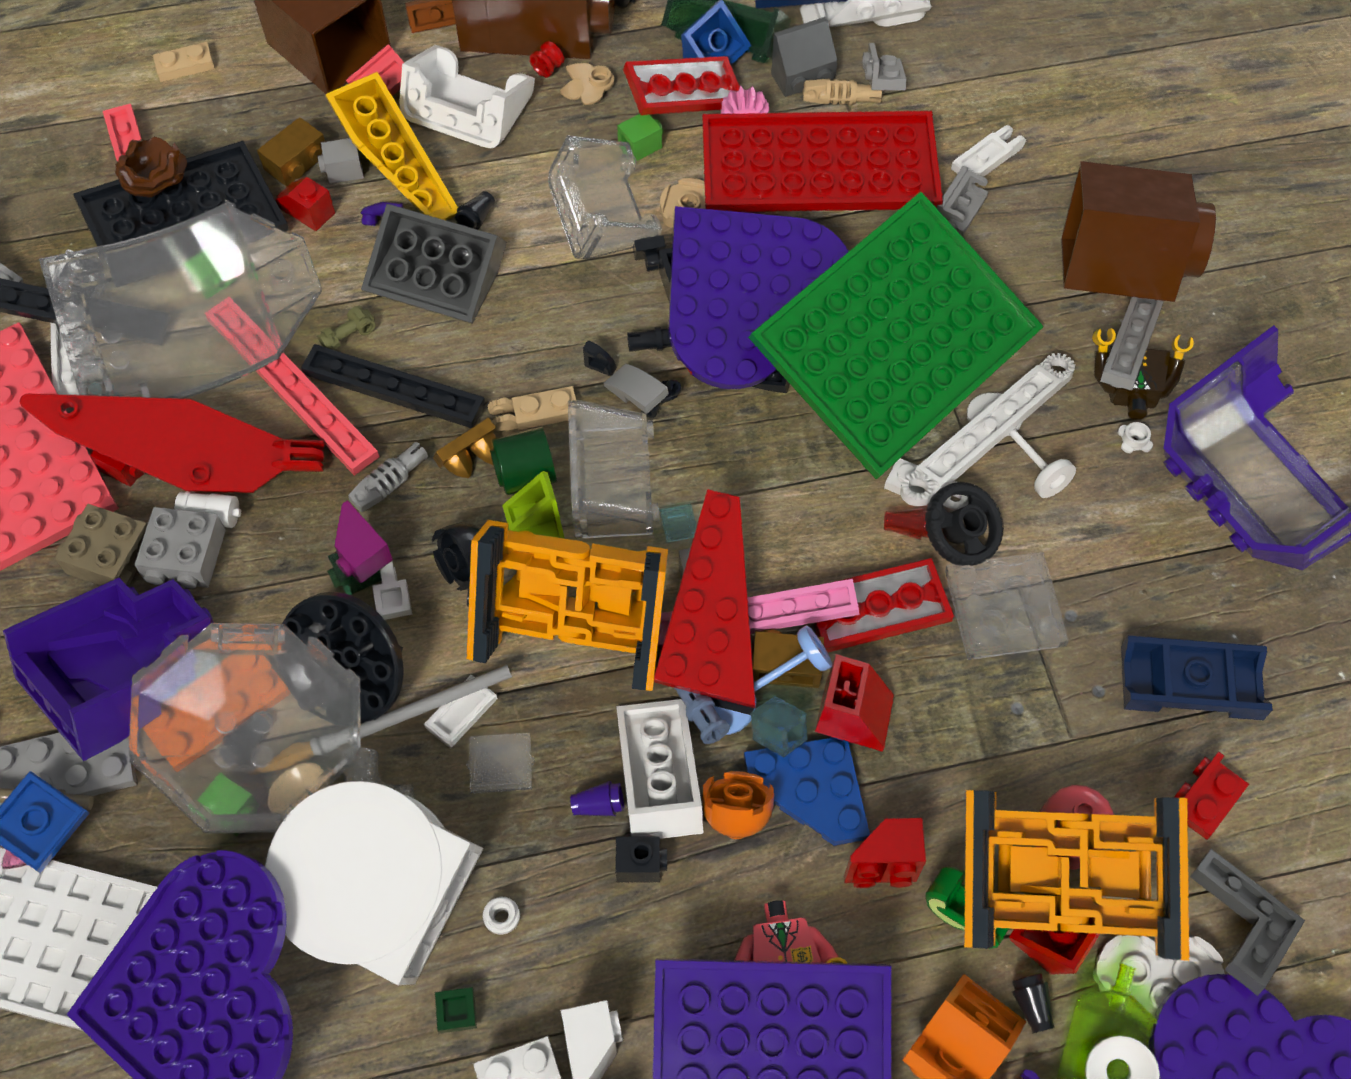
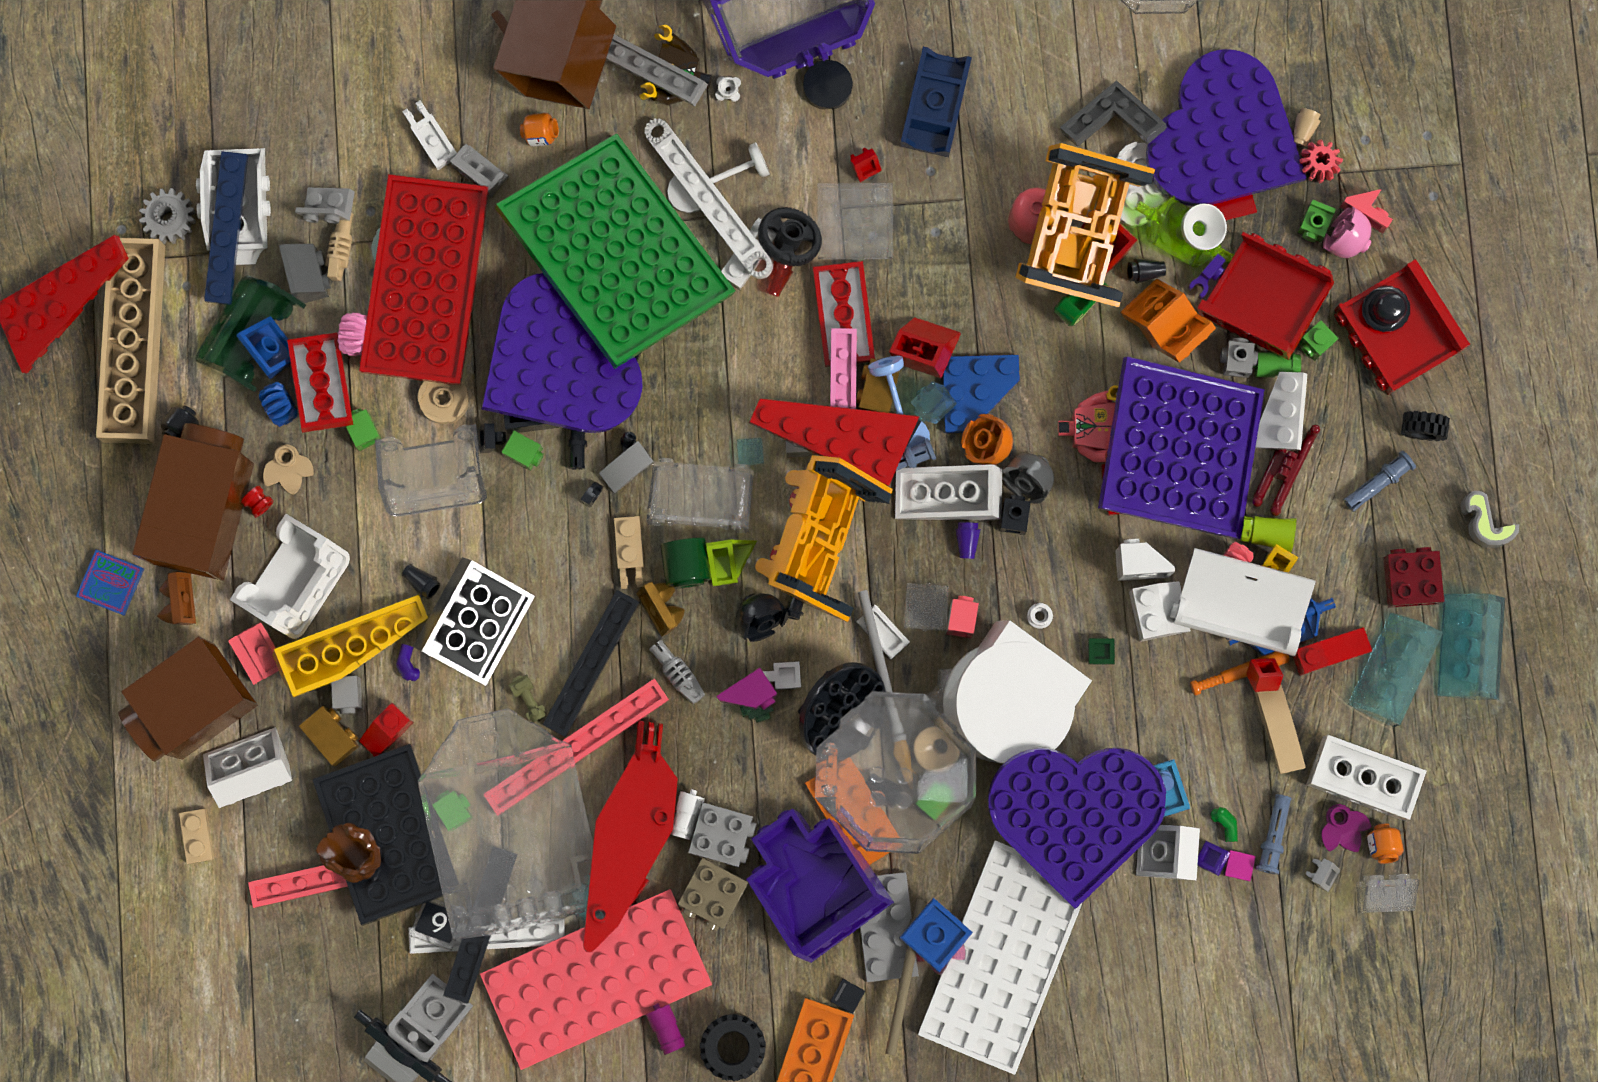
camera: 80 degrees left, 20 degrees up
(255, 87) = (246, 767): none -> white slope
(482, 800) = (962, 617): none -> coral brick
(639, 280) = (523, 451): none -> bright green brick
(655, 48) = (278, 404): none -> blue gear
(698, 870) = (1029, 476): none -> dark grey cylinder
(889, 855) = (1037, 344): red slope -> none
(1025, 250) = (539, 129): none -> orange head
(1083, 603) = (865, 164): none -> red tile
(1176, 549) = (827, 84): none -> black tile
(1211, 795) = (1021, 116): red bracket -> none

